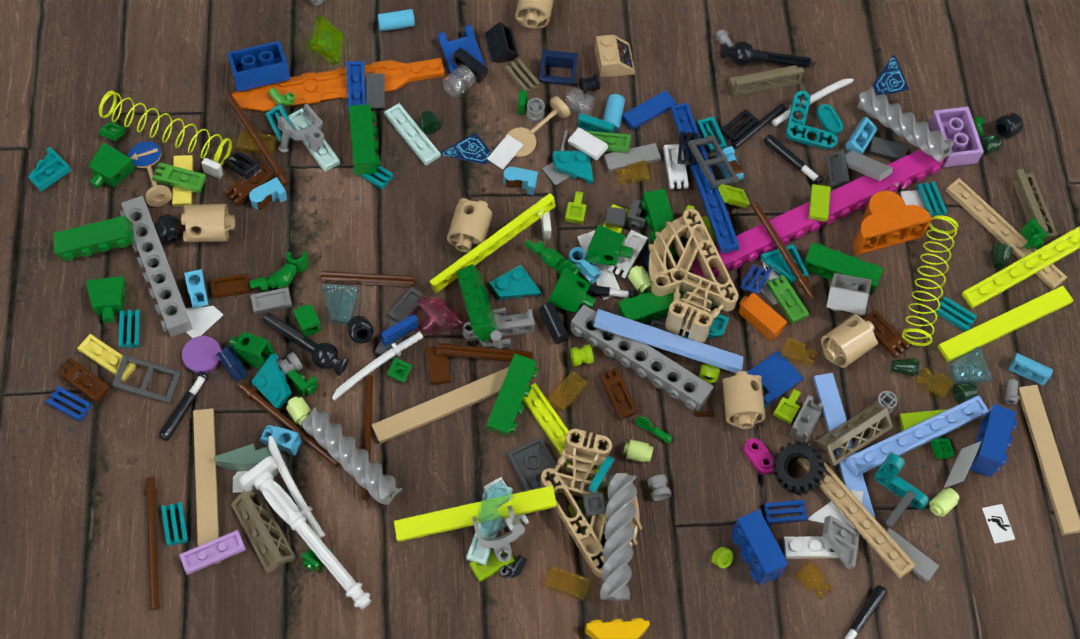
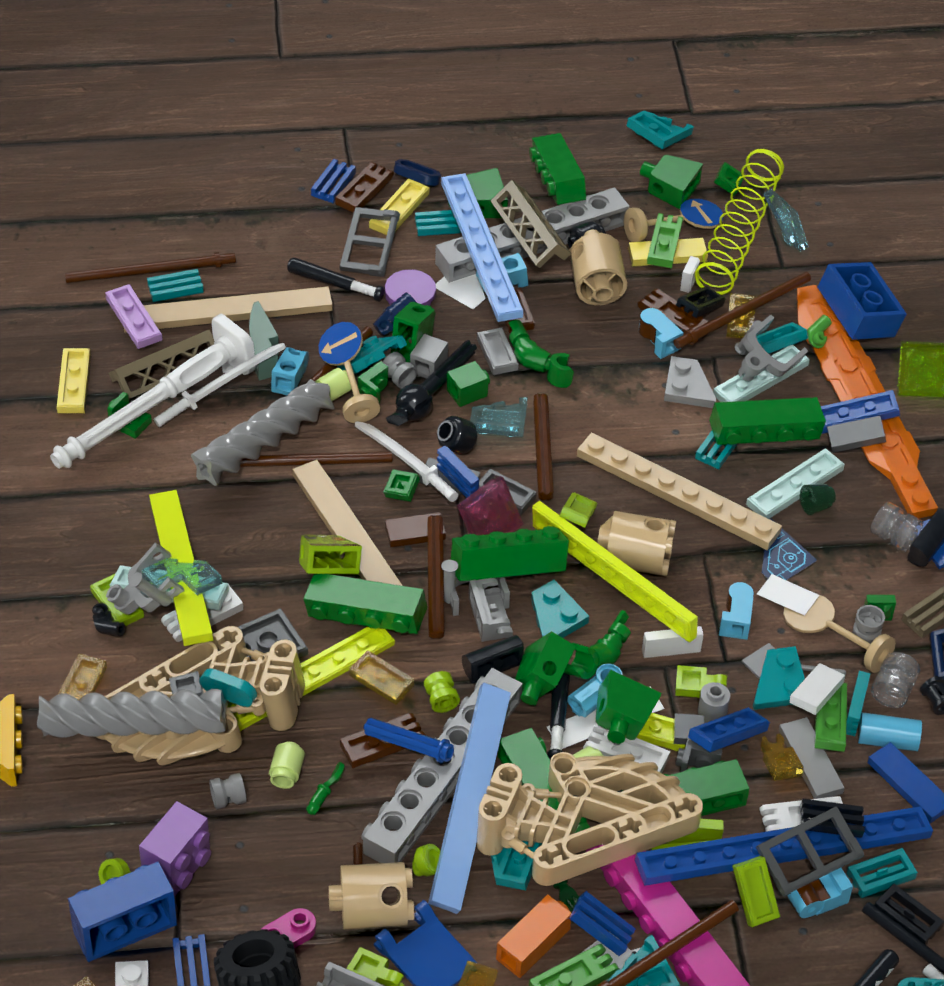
camera: 90 degrees right, 15 degrees down
(71, 341) = (417, 172): none -> dark blue tile
(158, 254) = (536, 219): none -> dark tan fence
(163, 100) = (787, 219): none -> clear light blue wing
(175, 297) = (482, 248): none -> light blue tile
(270, 398) = (339, 347): none -> piece
(271, 599) = (73, 380): none -> light yellow tile
(280, 342) = (428, 355): none -> light grey brick
(315, 184) = (688, 384): none -> light grey wing
(413, 203) = (679, 491): none -> tan plate
(435, 259) = (578, 509): none -> lime tile
(469, 417) = (323, 555): none -> lime torso
(596, 200) = (713, 701): none -> light grey brick
(619, 194) = (728, 729): none -> blue tile
(629, 373) = (408, 739): none -> blue axle
(712, 515) = (178, 845): none -> medium lavender brick

